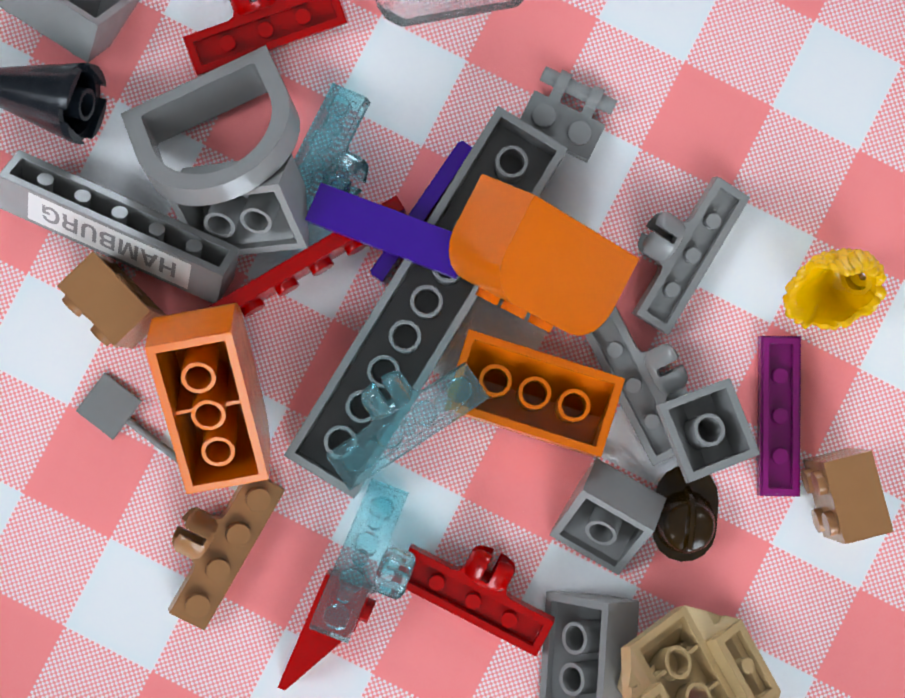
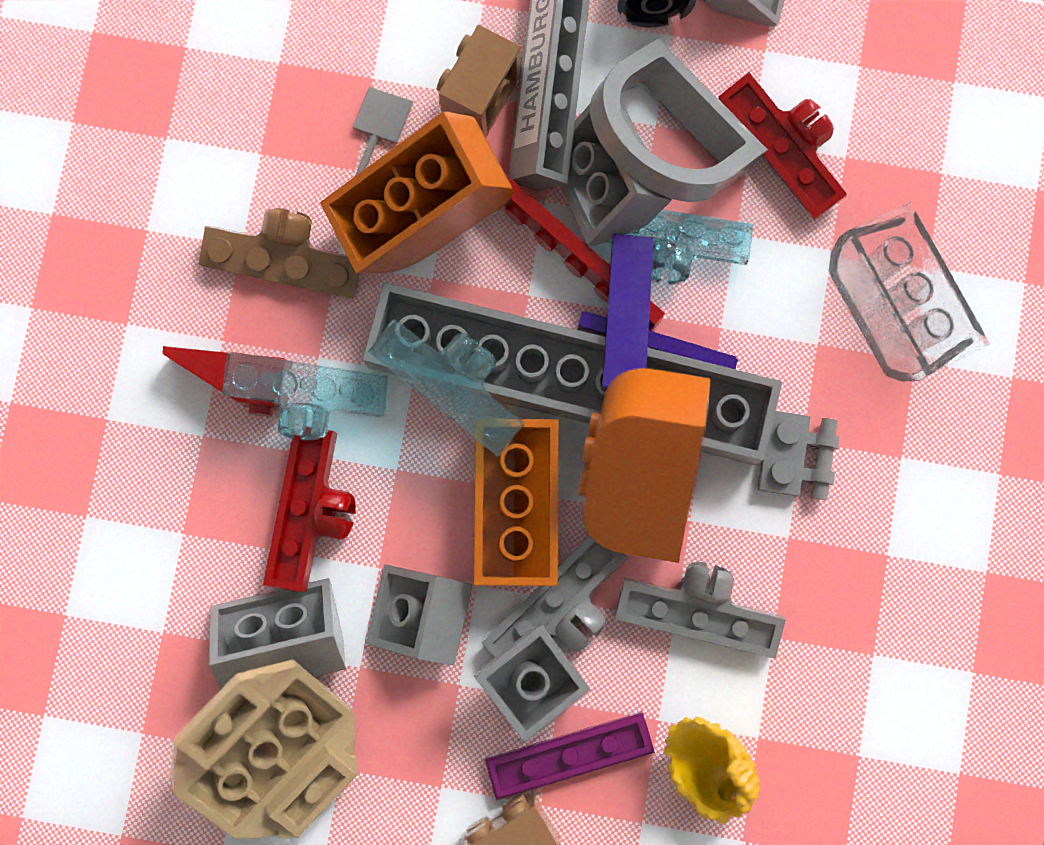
camera: 75 degrees right, 5 degrees down
(688, 516) = (442, 693): dark brown piece -> none

